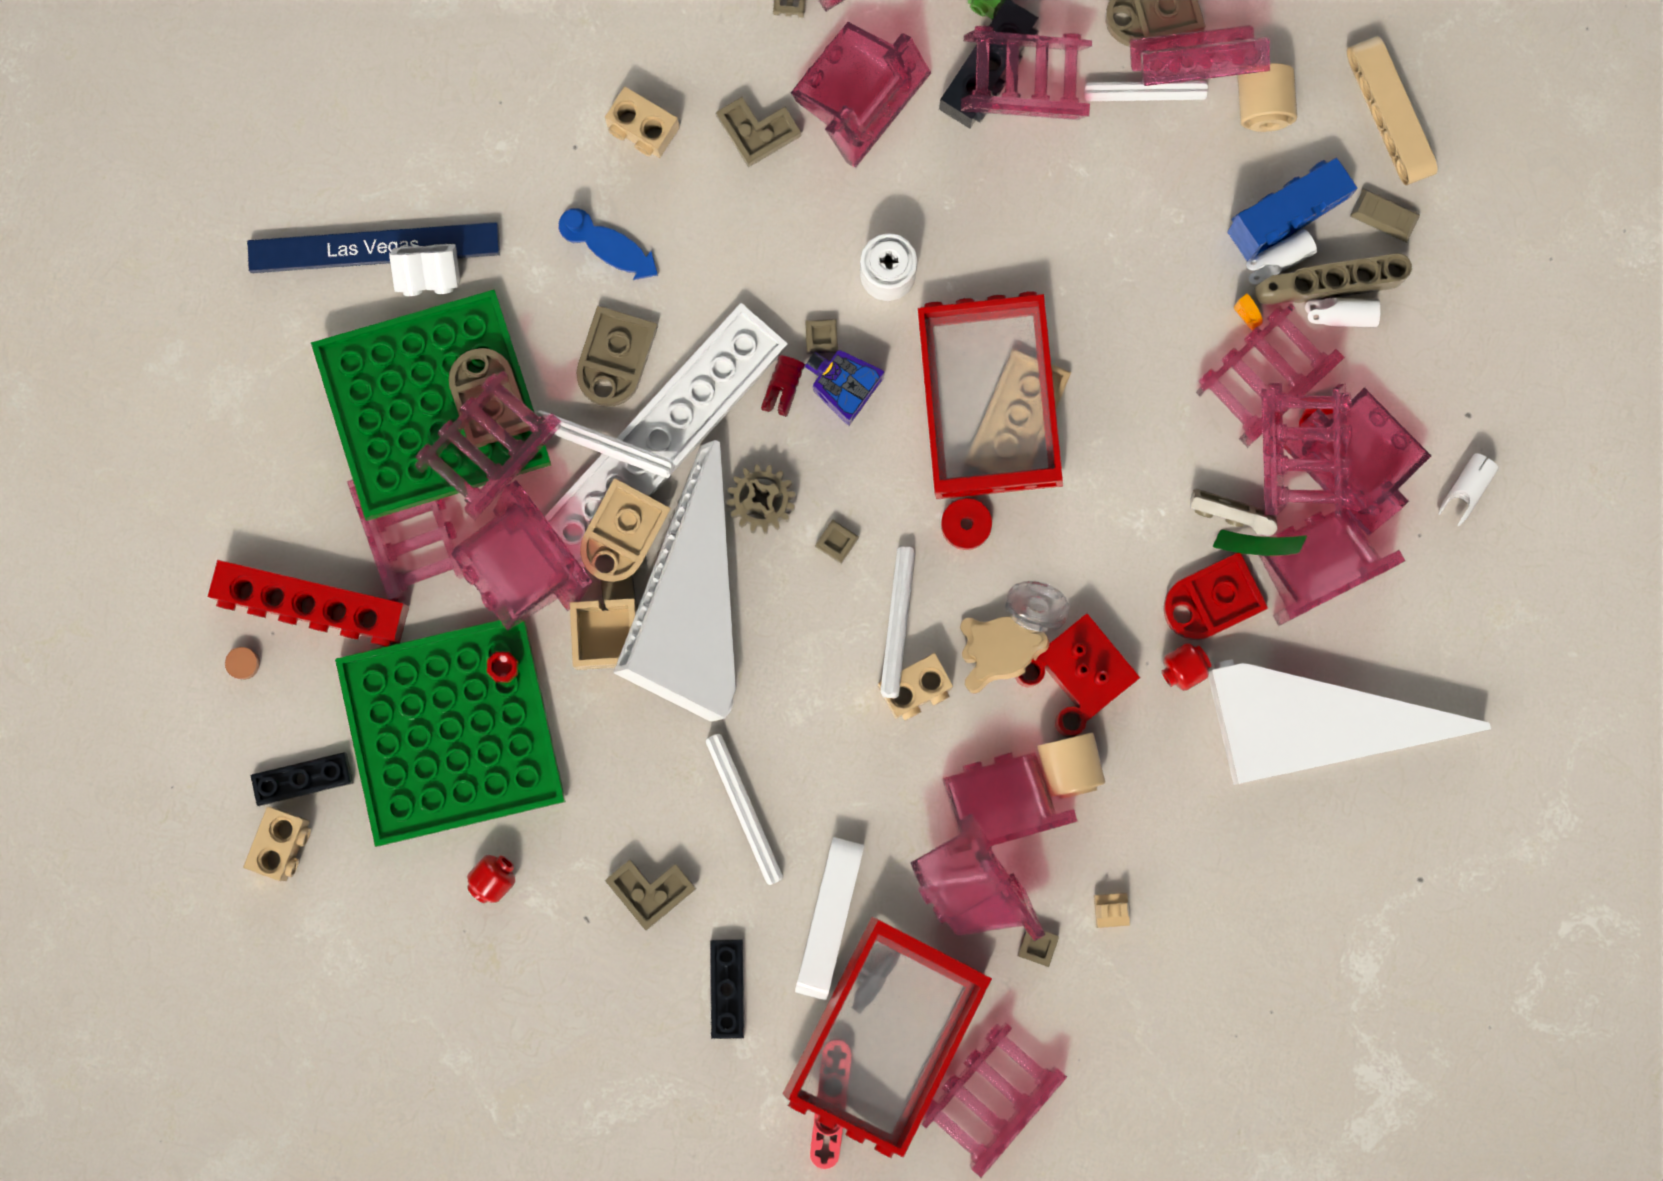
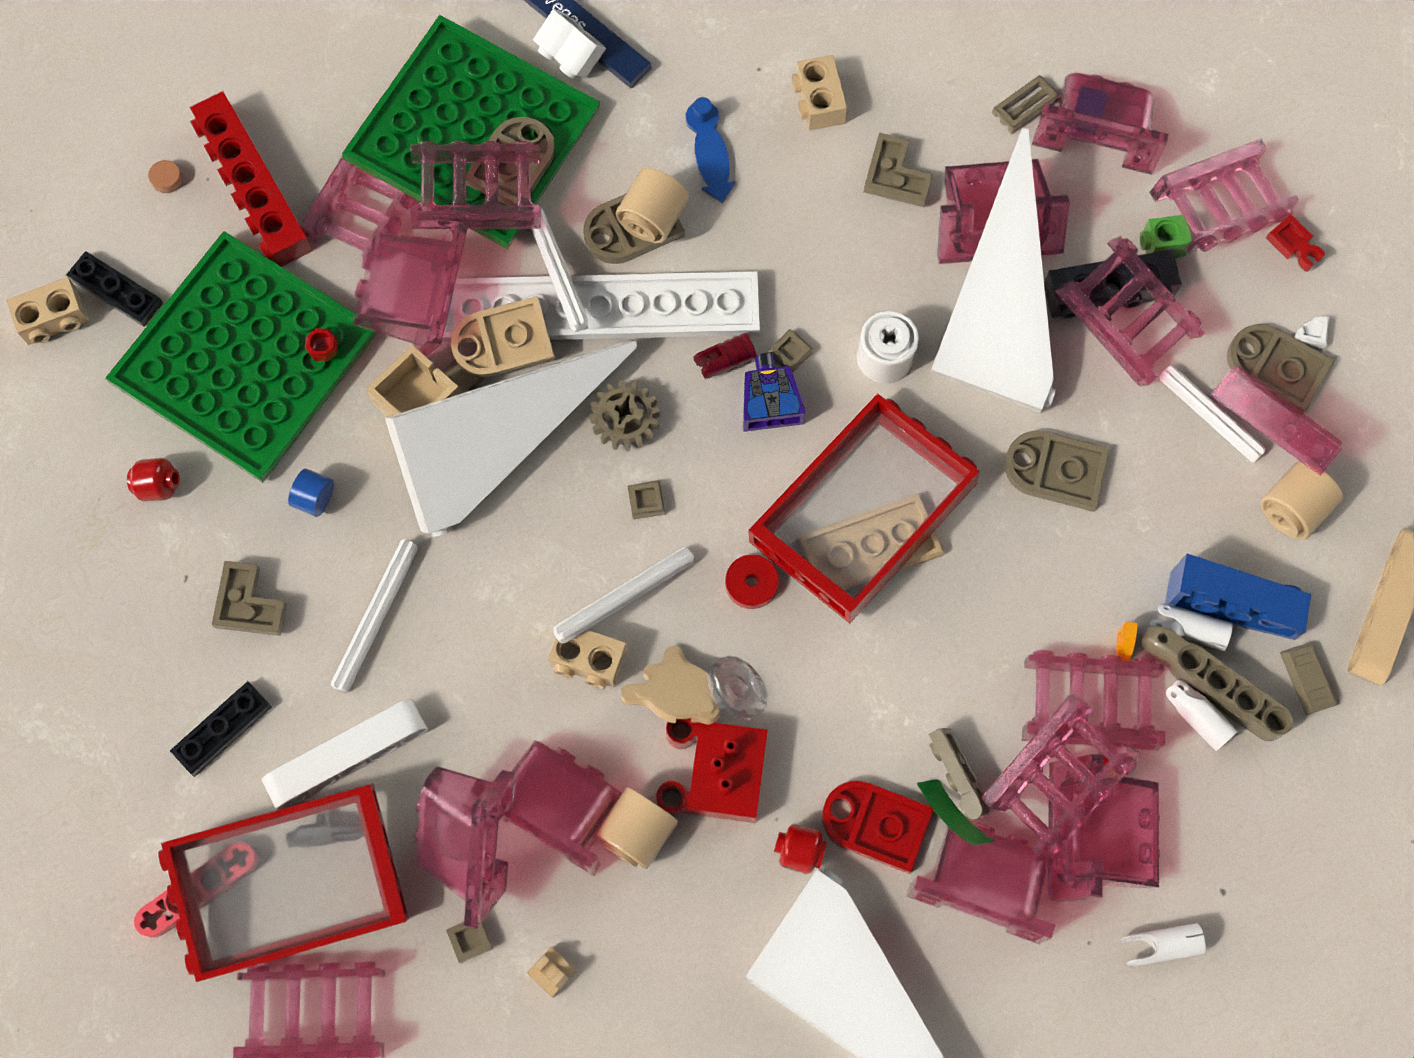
camera: 45 degrees right, 10 degrees down
(609, 774) = (311, 492): none -> blue piece
(622, 331) = (652, 205): none -> tan piece
(944, 169) = (1000, 319): none -> white slope
(1085, 234) = (1059, 468): none -> dark tan tile

